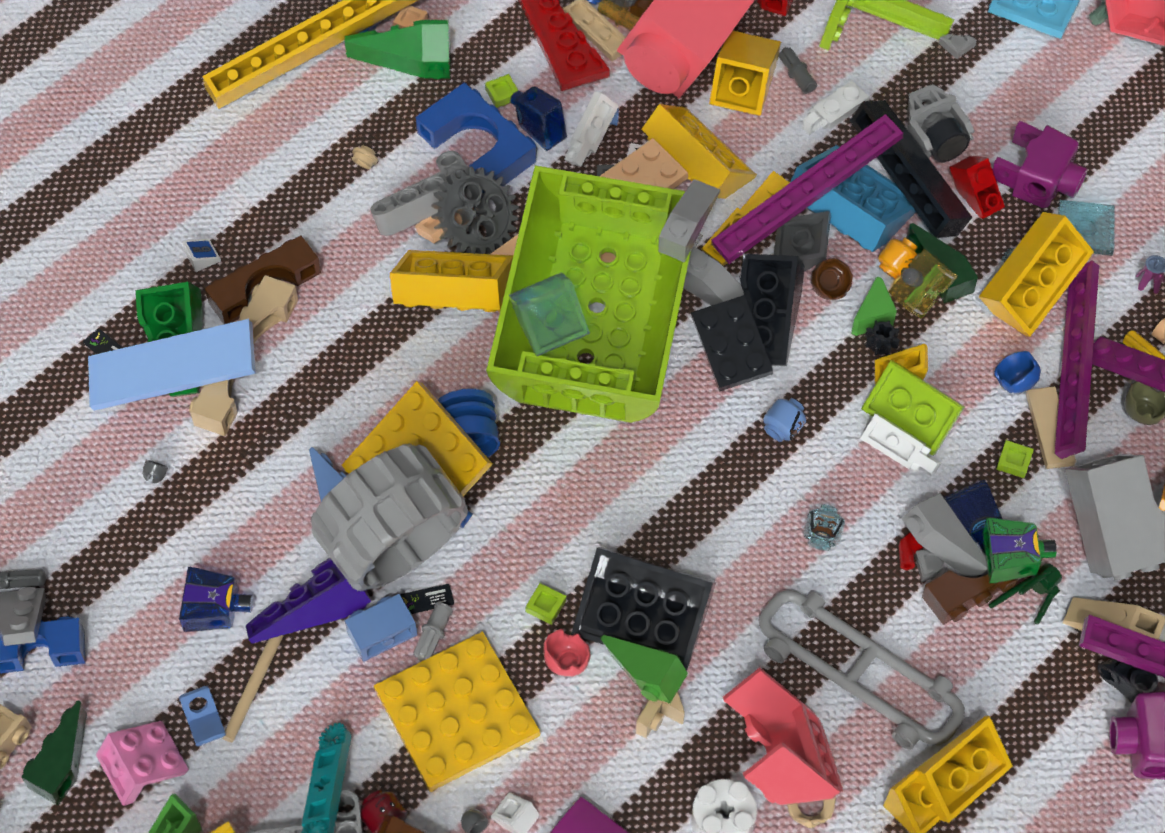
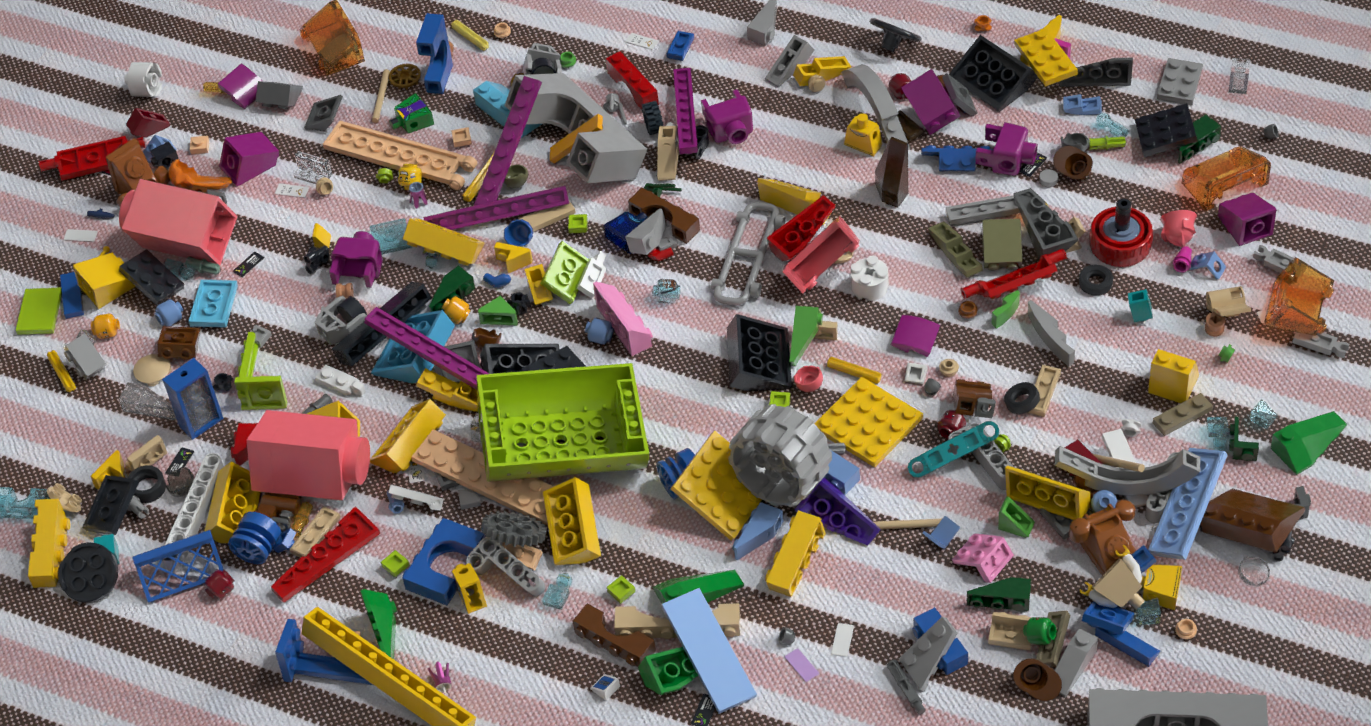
camera: 105 degrees left, 10 degrees down
(109, 478) = (801, 665): none -> lavender sticker
(118, 539) = (842, 639): none -> white sticker
(211, 601) = (863, 563): clear blue torso -> none
(268, 521) = (795, 553): none -> yellow wedge
(288, 386) = (711, 585): none -> green wedge
(307, 93) = (442, 679): none -> flat silver piece
(331, 311) = (621, 589): none -> lime plate
(362, 239) = (557, 595): none -> clear light blue plate
(364, 157) = (485, 620): tan plate -> none
(418, 147) = (465, 579): none -> yellow torso
(540, 116) = (413, 528): clear blue torso -> none
(549, 313) = (598, 424): clear light blue slope -> none
(560, 728) = (854, 369): none -> yellow axle
(687, 220) = (503, 371): light grey slope -> none
(792, 448) = (622, 317): none -> bright pink slope
(850, 735) = (798, 232): none -> red wedge
(922, 283) = (475, 288): clear yellow piece -> none
(941, 328) = (497, 281): none -> blue arm
(976, 358) = (515, 256): none -> yellow slope
(977, 185) = (380, 290): red slope -> none
(992, 144) = (344, 290): none -> nougat wheel
(1014, 549) = (650, 194): green torso -> none
(1067, 123) = (315, 258): none -> black plate
(1099, 61) = (248, 264): none -> black sticker
(1113, 144) = (321, 236): none -> yellow slope

